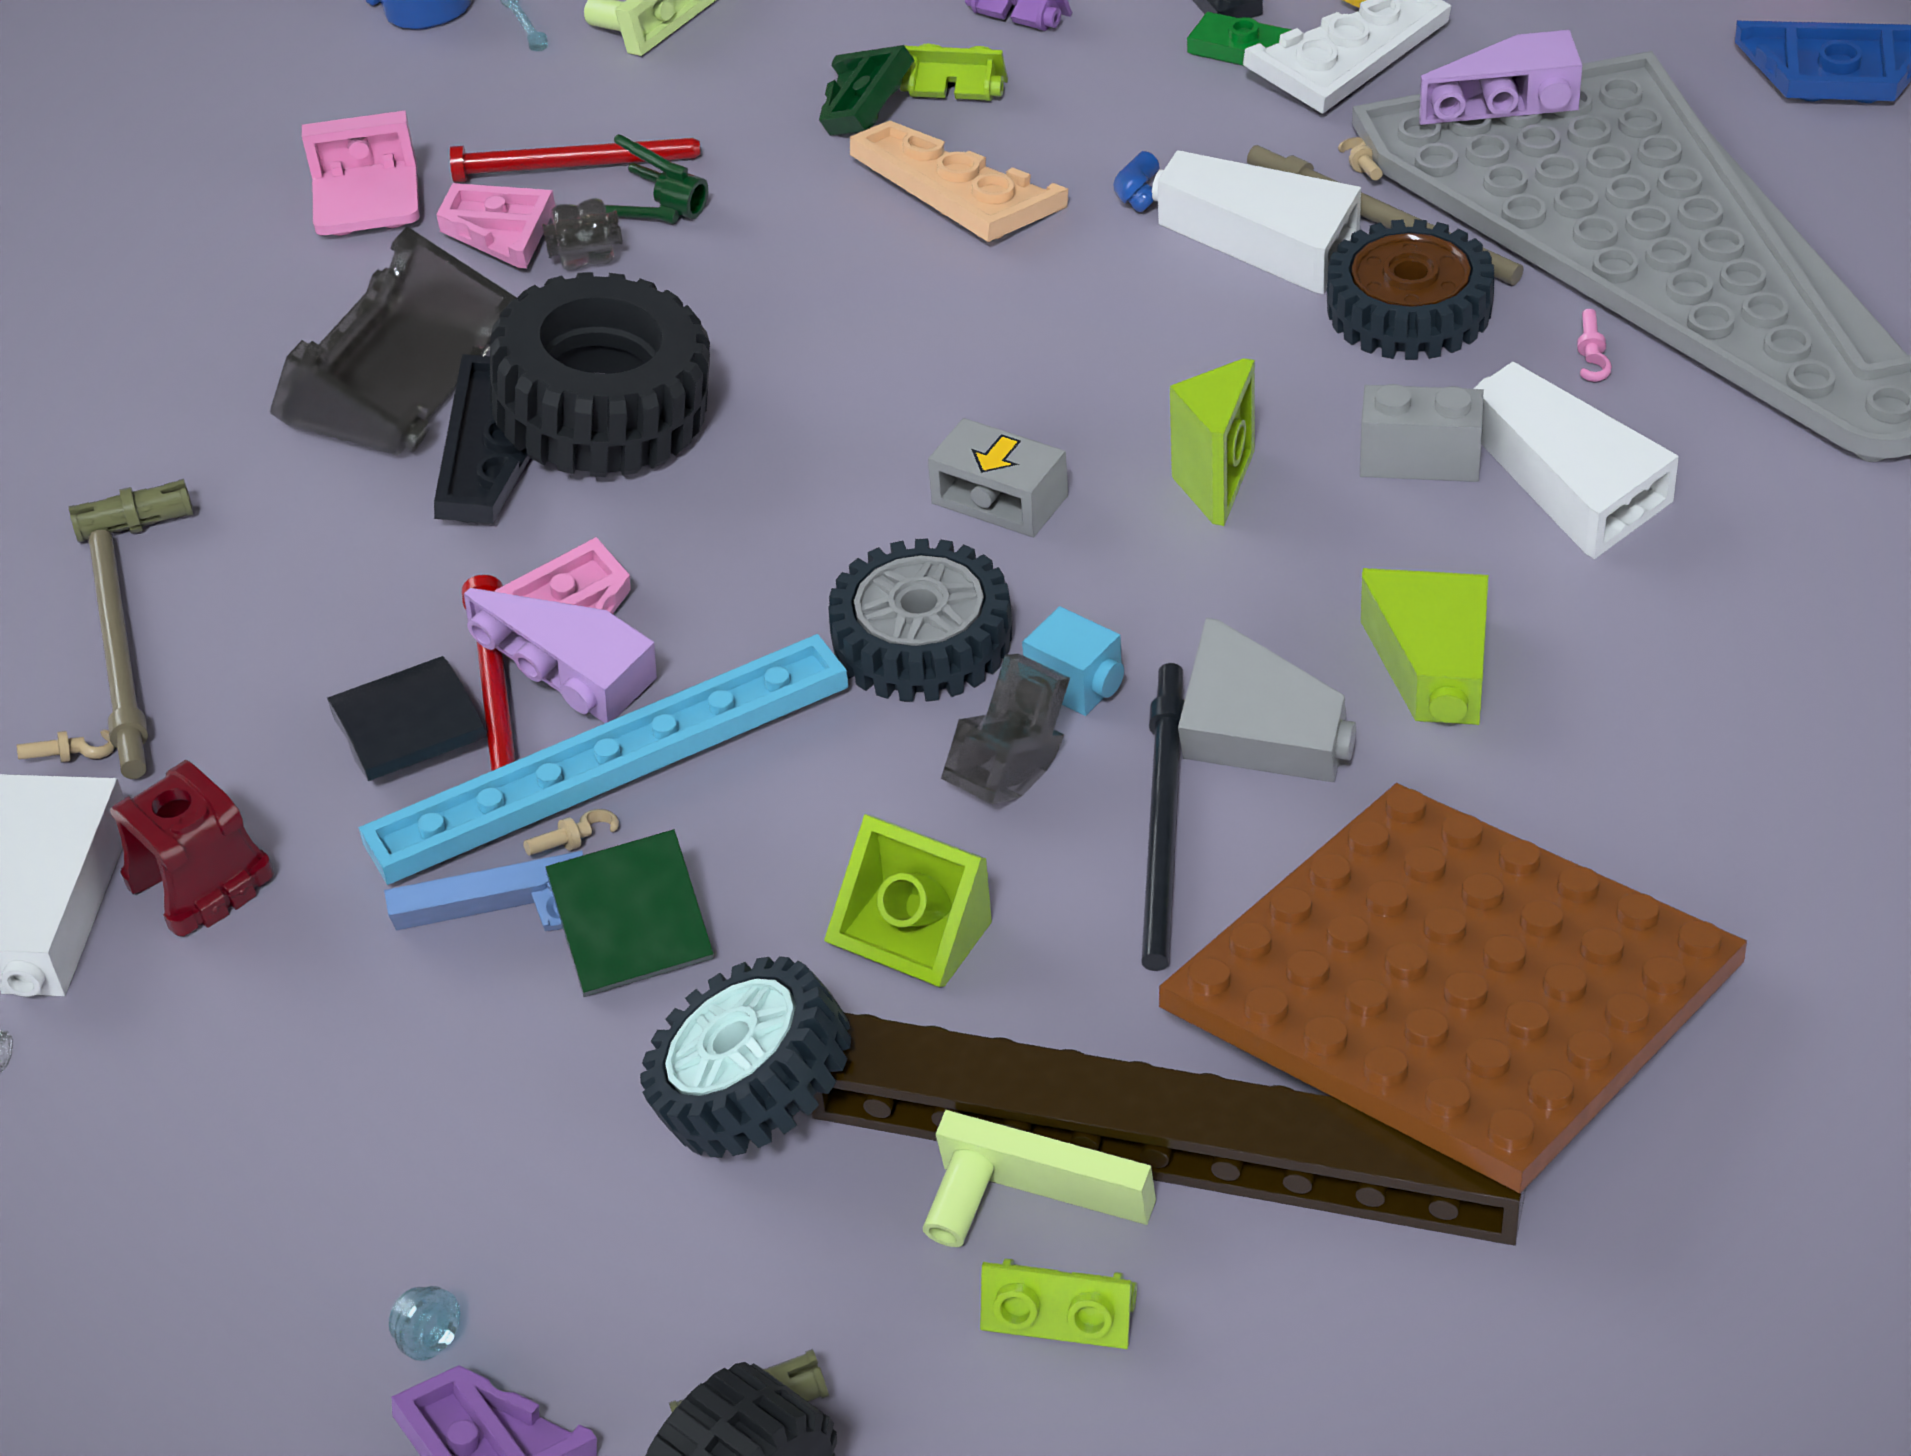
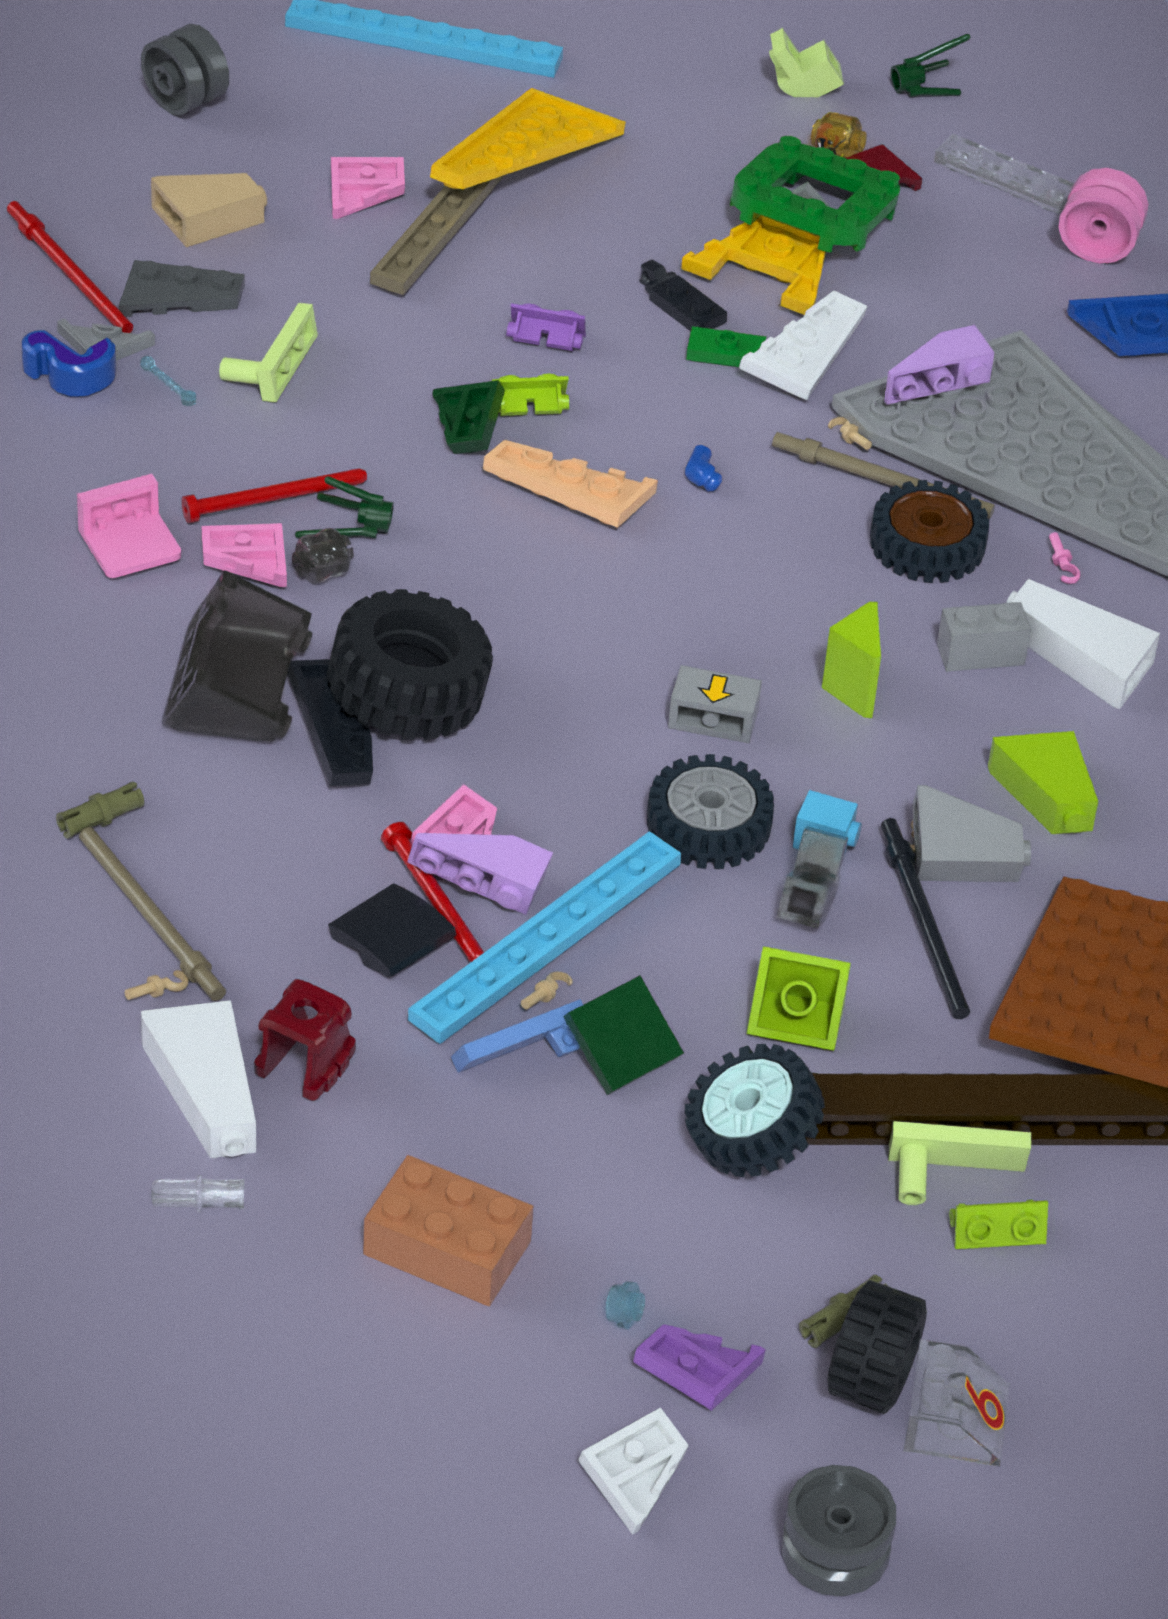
camera: 25 degrees left, 0 degrees up
(231, 1158) = (448, 1230): none -> nougat brick
(1259, 214) = (802, 486): white slope -> none

